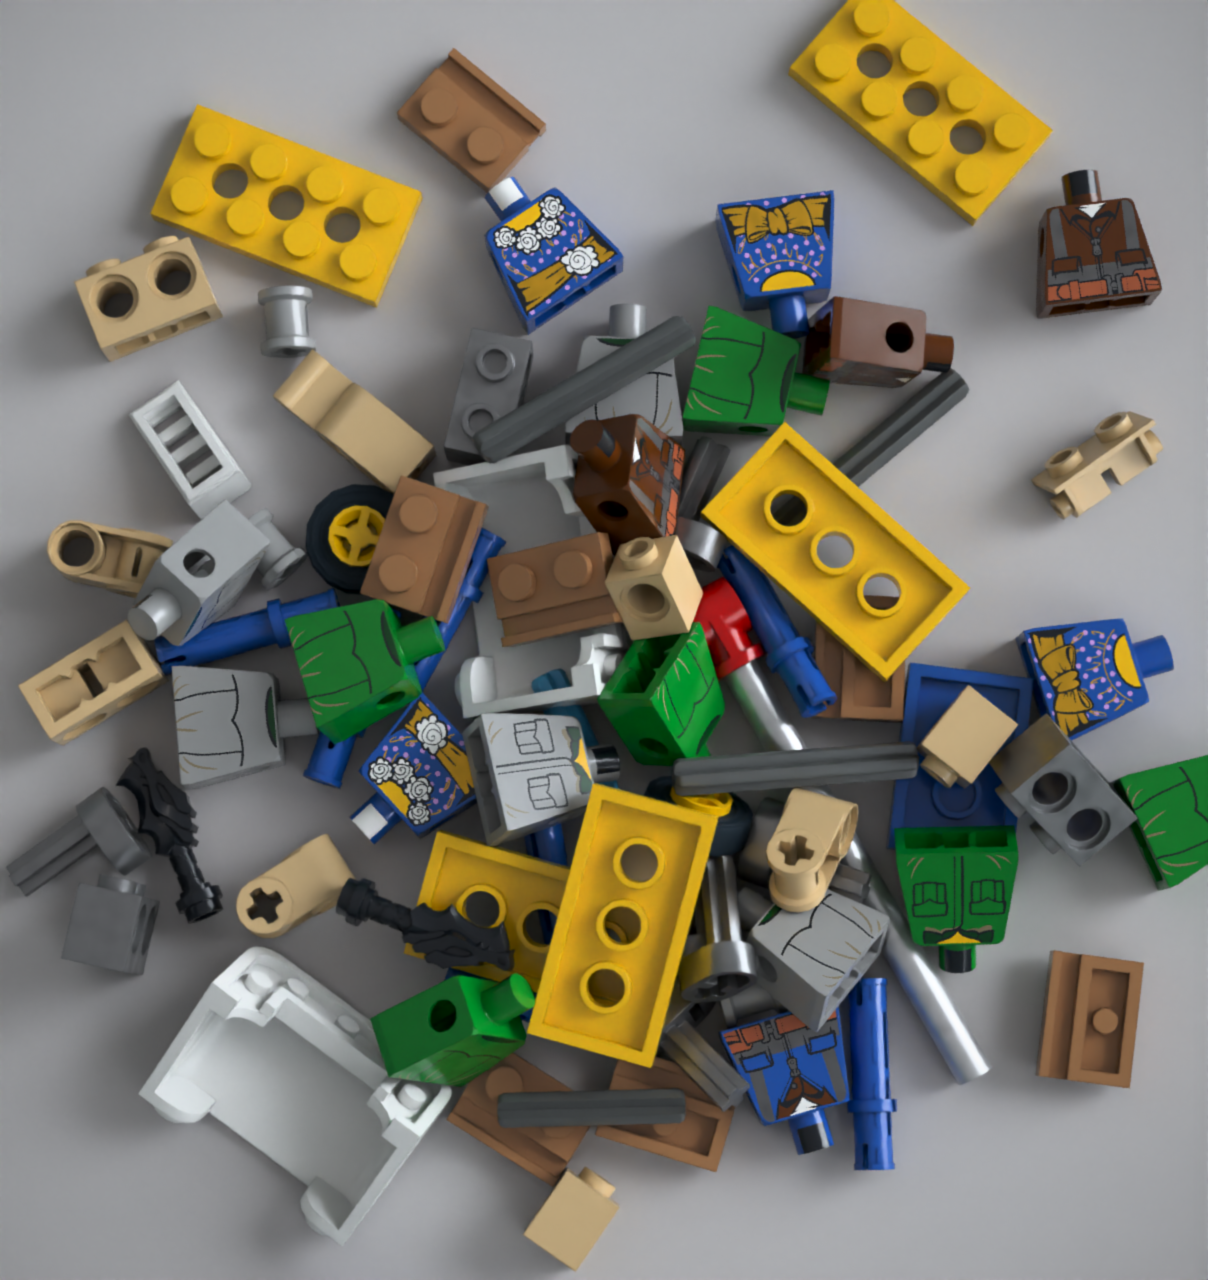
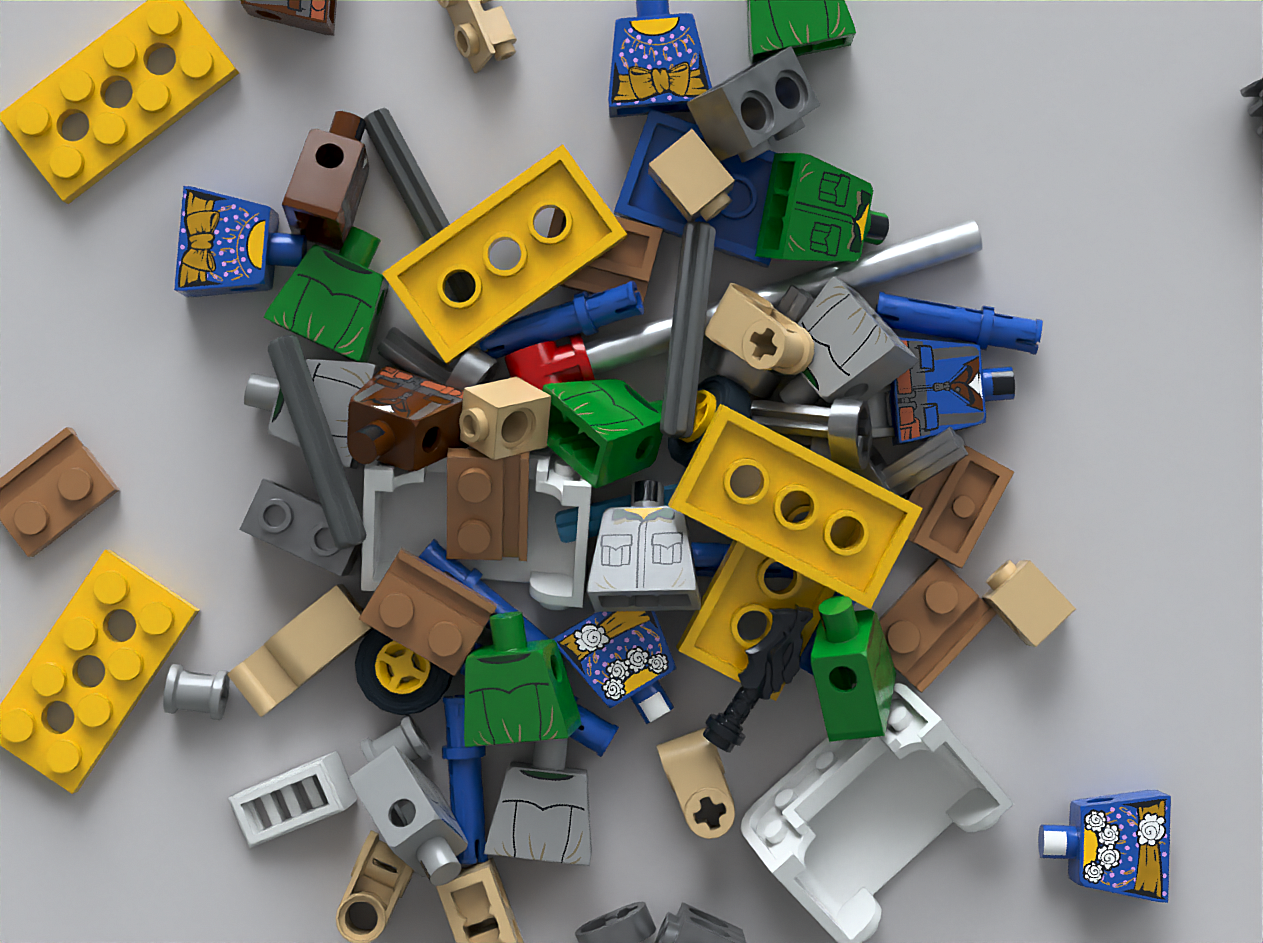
camera: 75 degrees left, 5 degrees up
(153, 313) = (164, 809): tan brick -> none
(166, 818) = (614, 881): black piece -> none
(546, 252) = (183, 450): torso -> none
(591, 1108) = (940, 566): dark grey axle -> none
(1089, 1019) = (949, 127): medium nougat plate -> none

